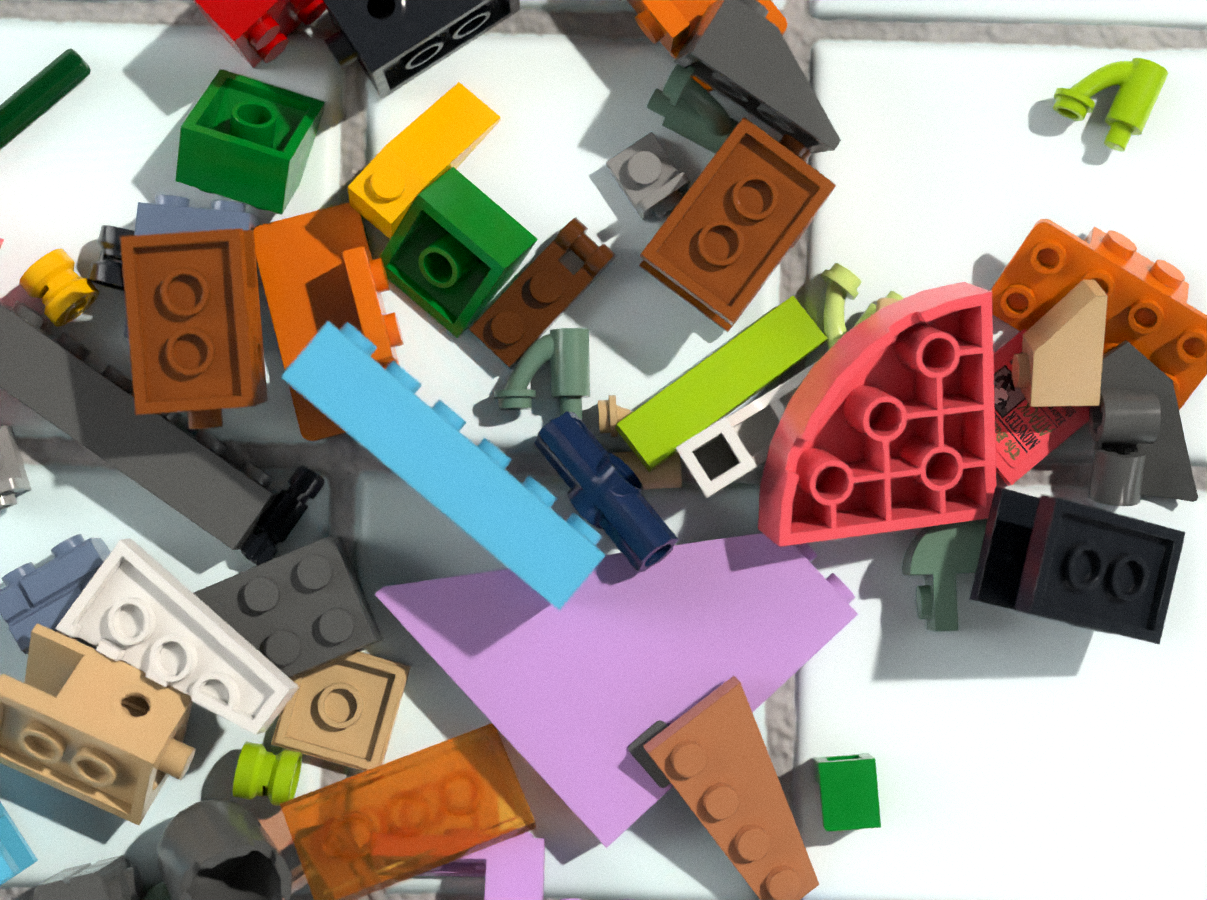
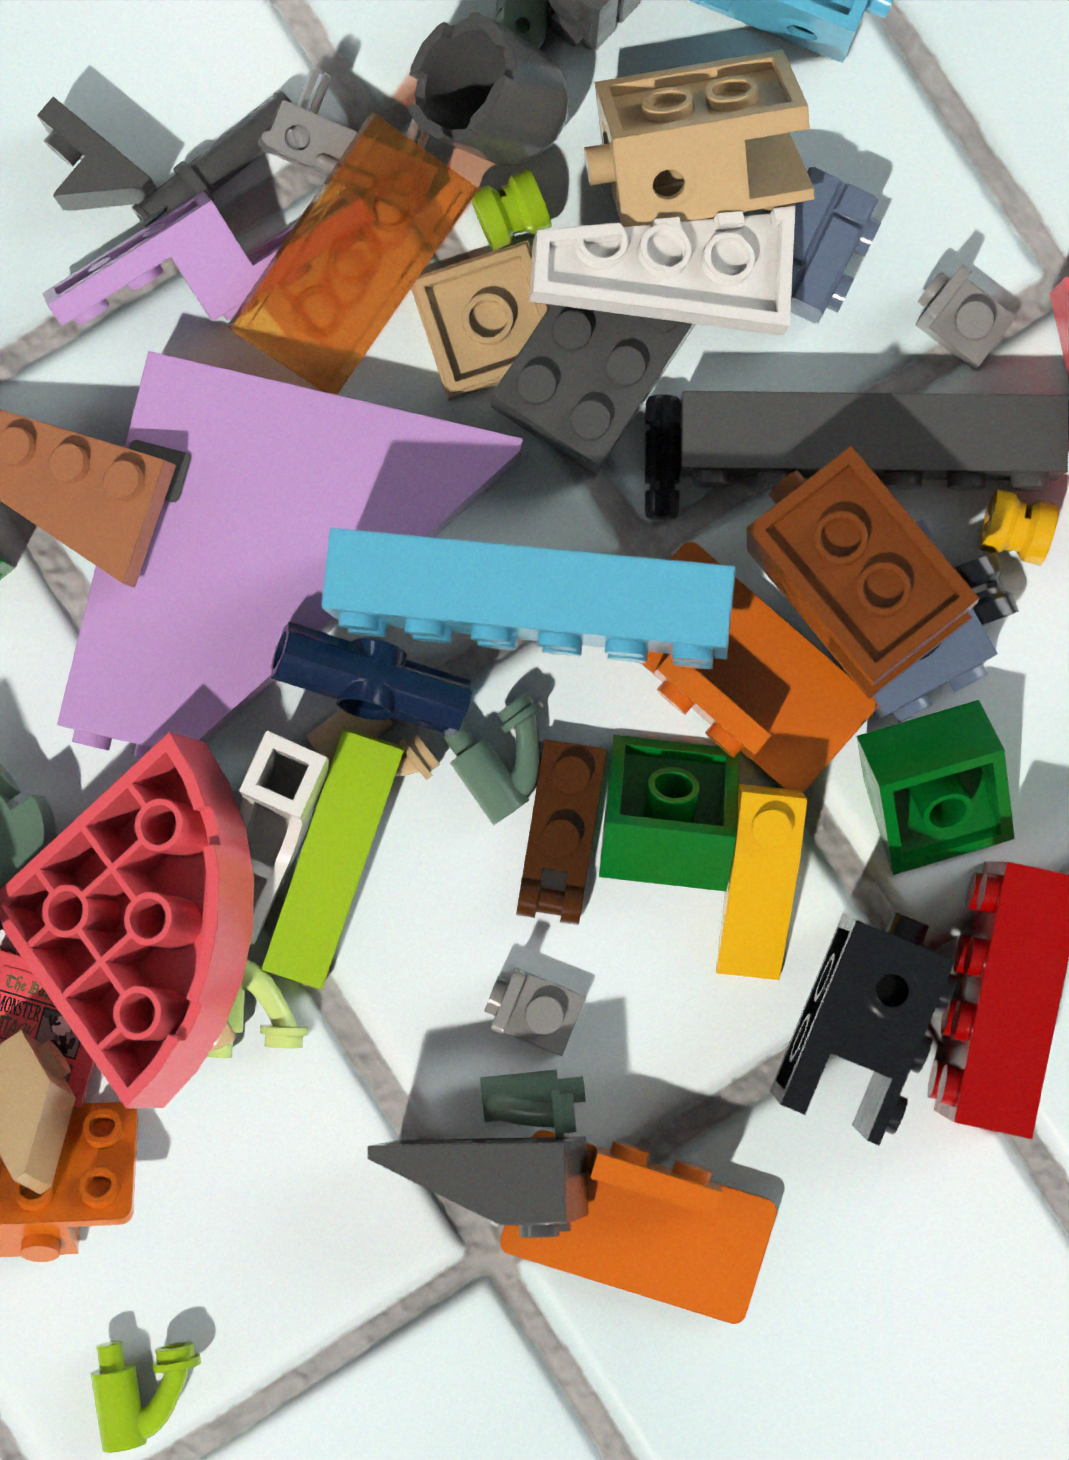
camera: 145 degrees right, 0 degrees up
(737, 223) = (416, 1019): dark orange torso -> none

